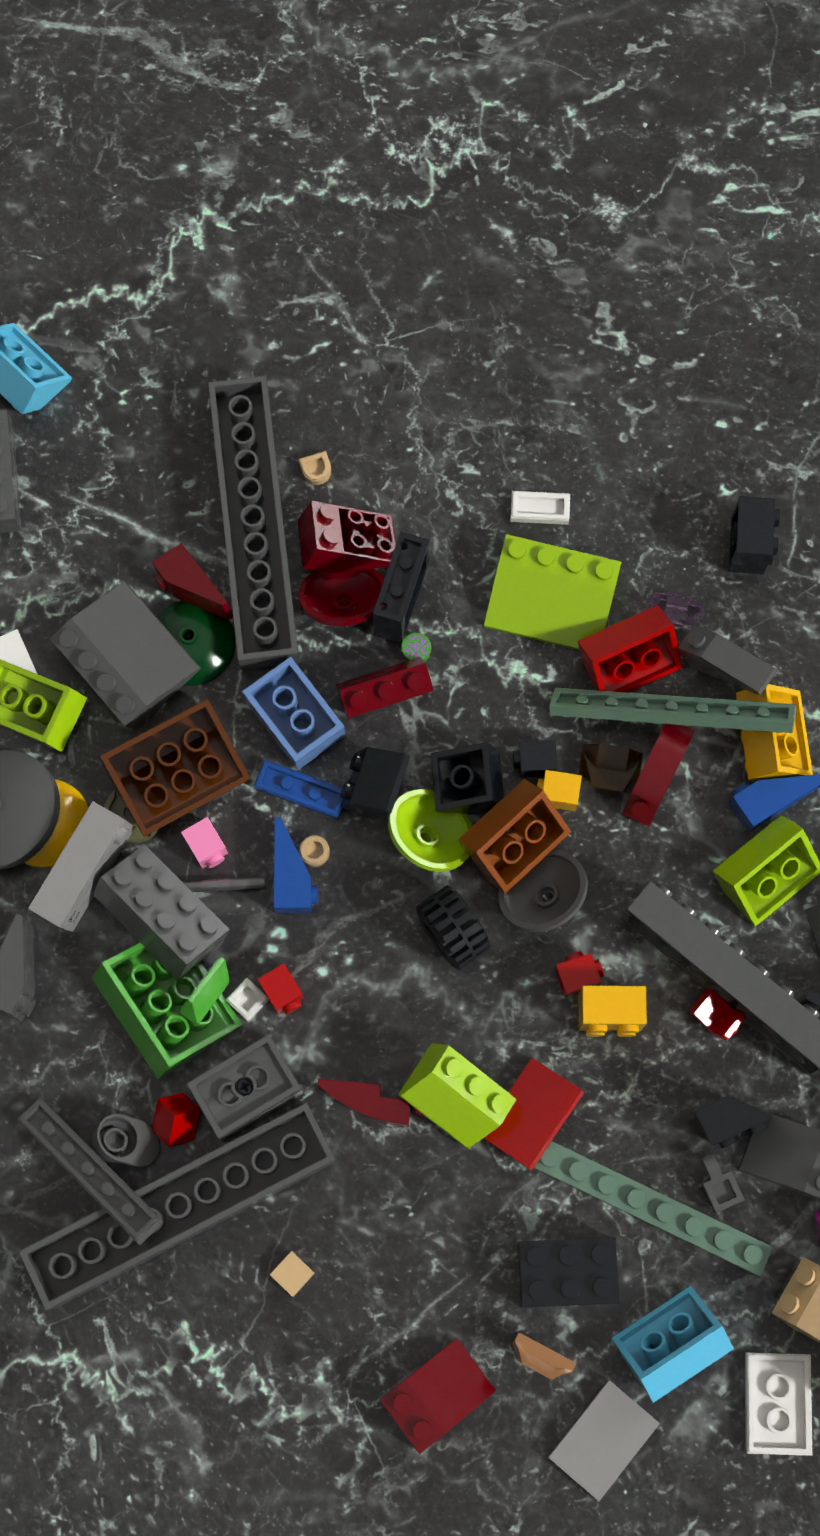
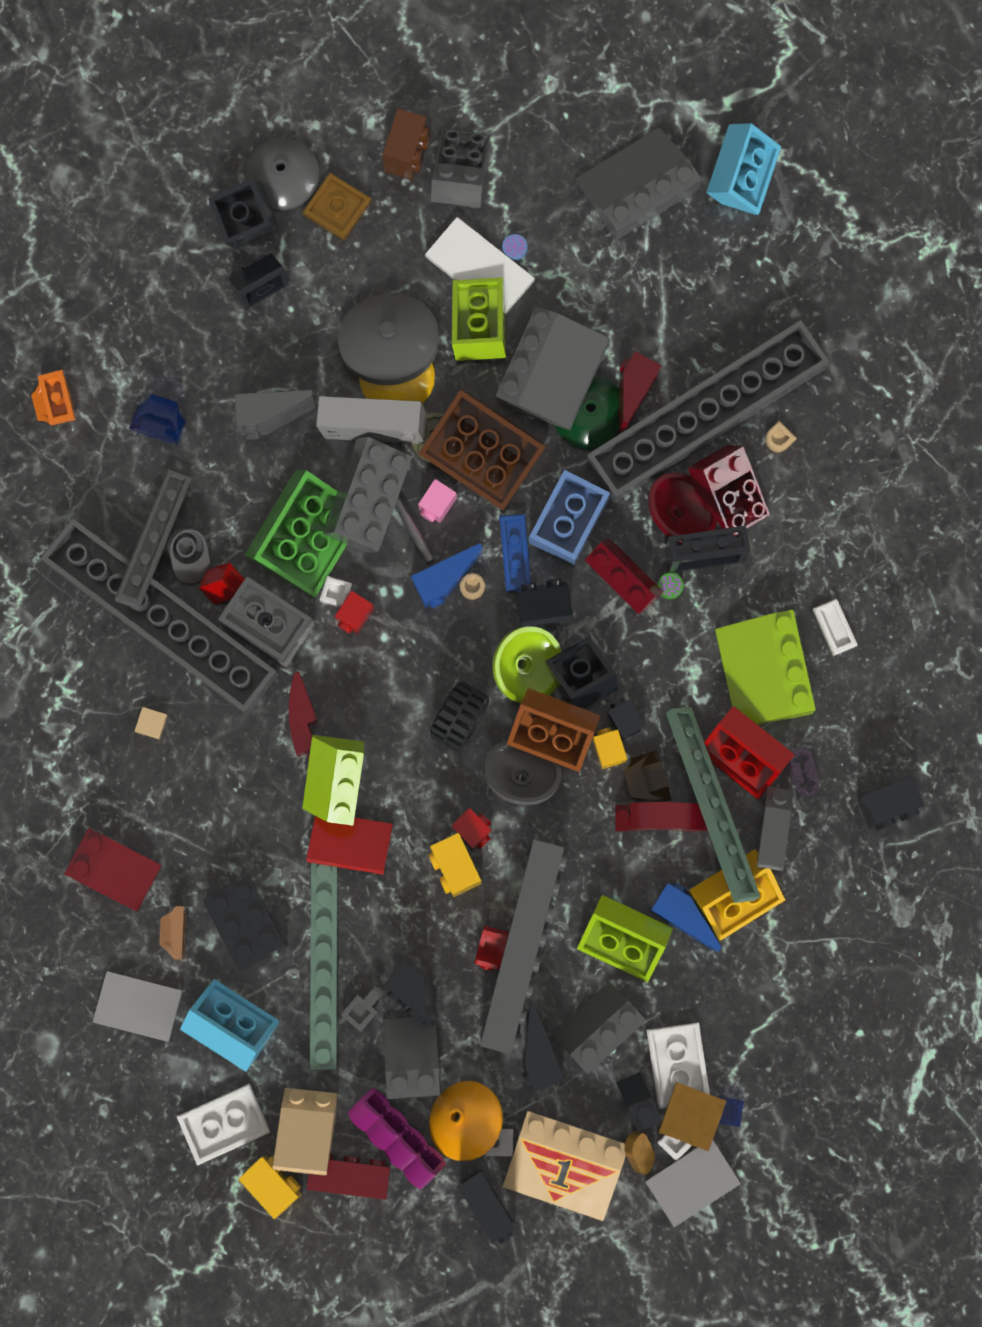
camera: 65 degrees right, 5 degrees up
(206, 992) = (324, 558): bright green slope -> none

